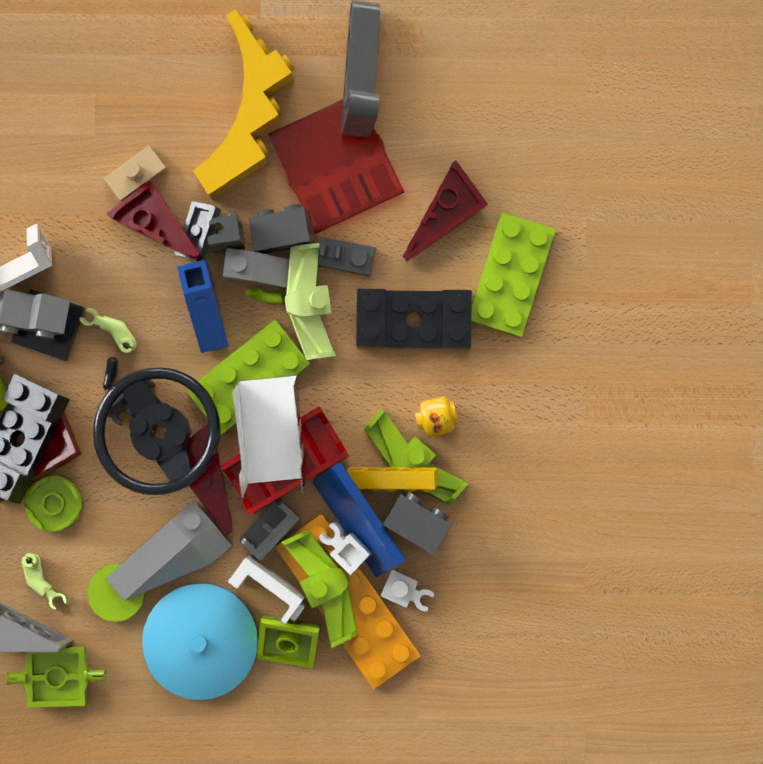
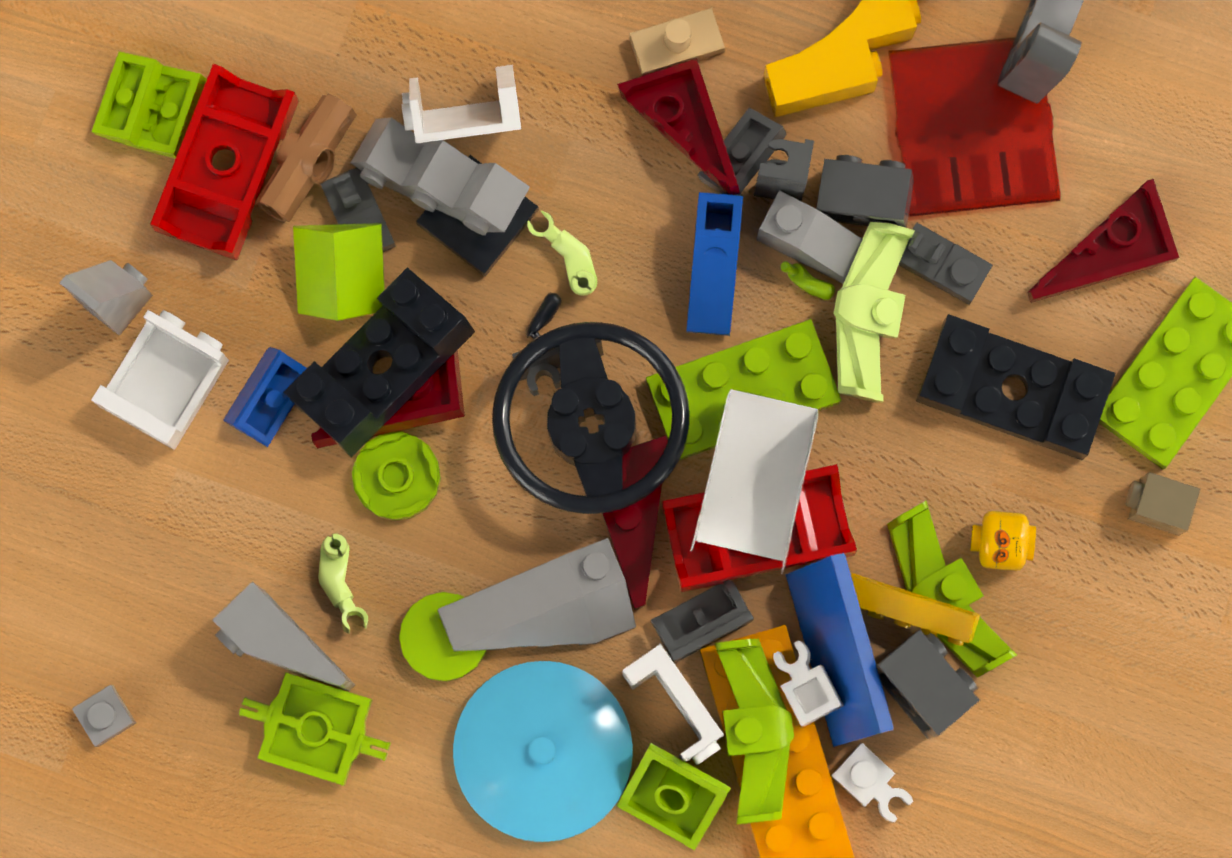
camera: 15 degrees right, 5 degrees down
(526, 360) = (1162, 503): none -> dark tan brick

